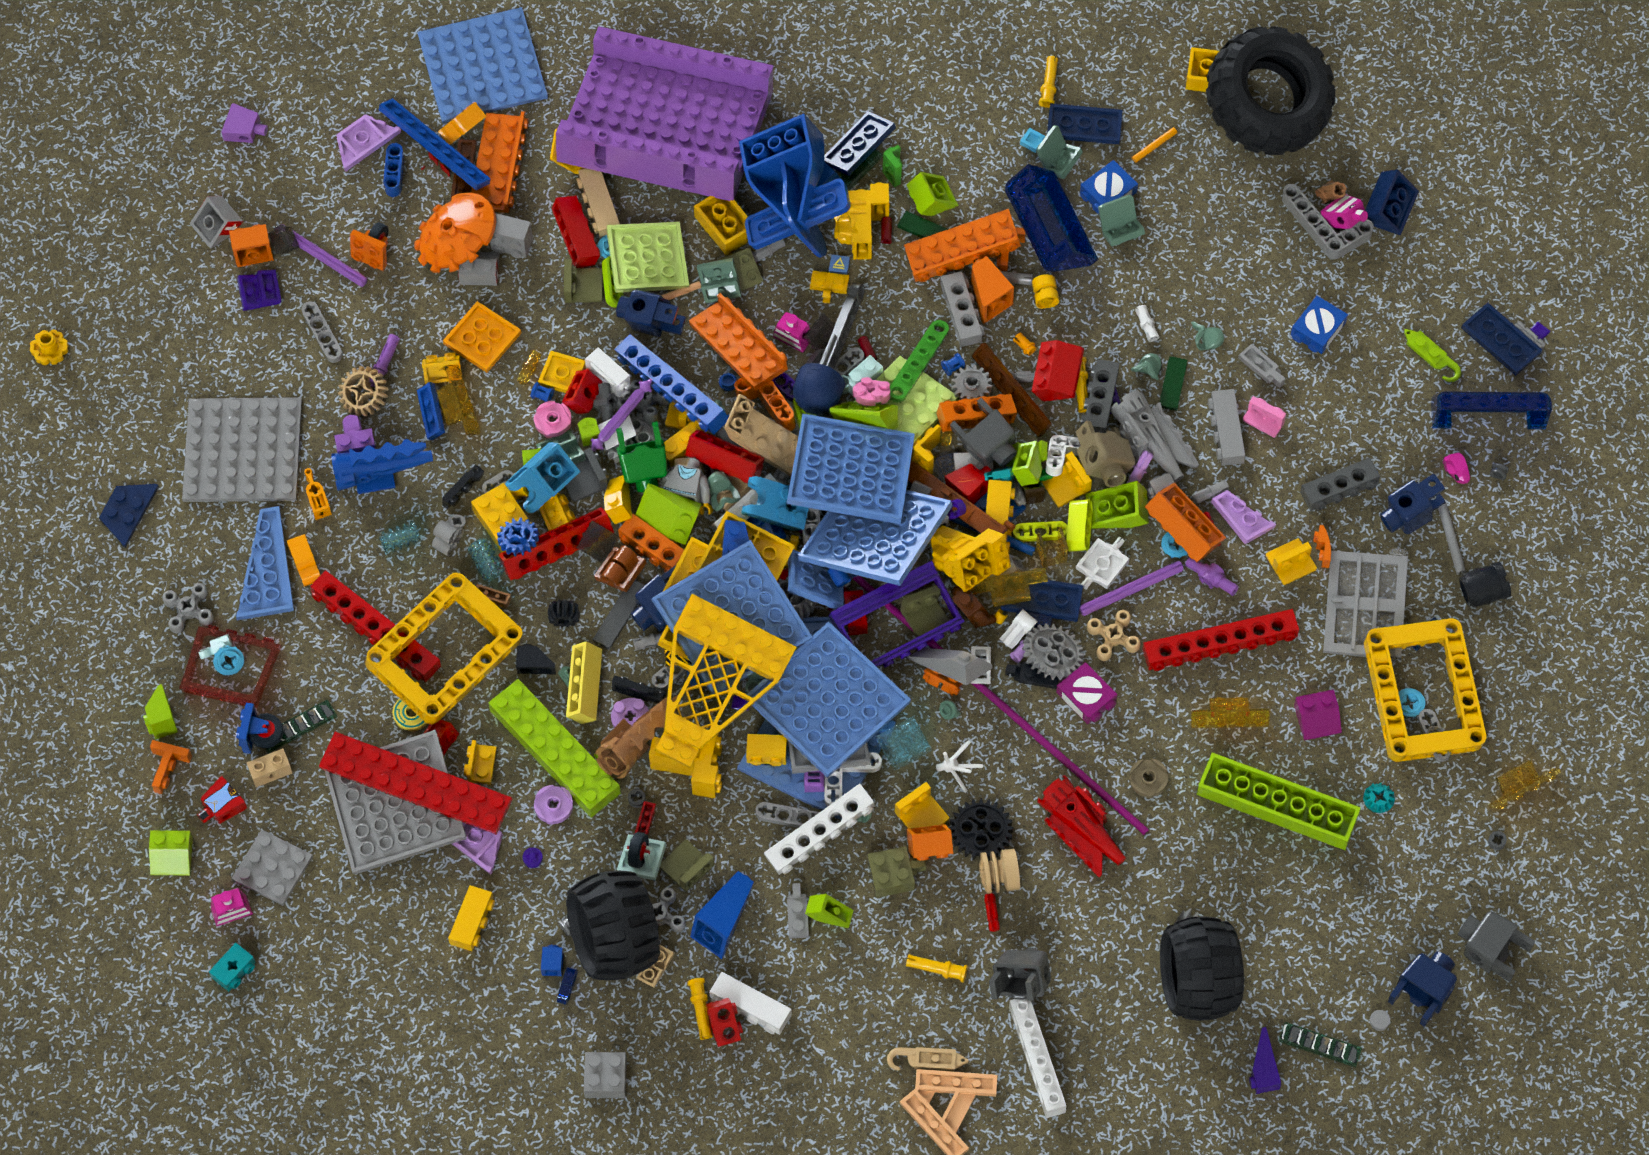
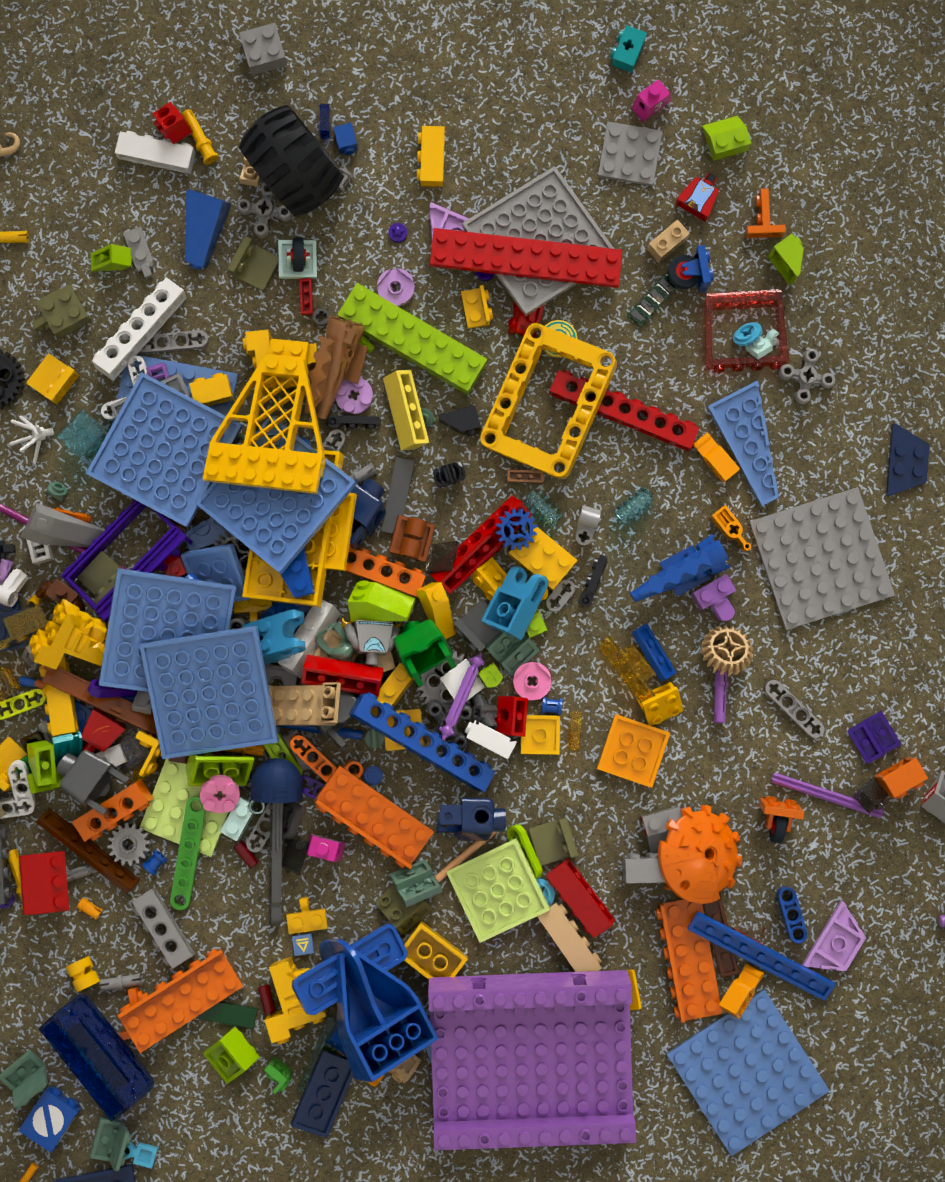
camera: 160 degrees right, 20 degrees up
(929, 841) = (32, 345): orange brick -> none
(991, 289) = (138, 955): orange slope -> none

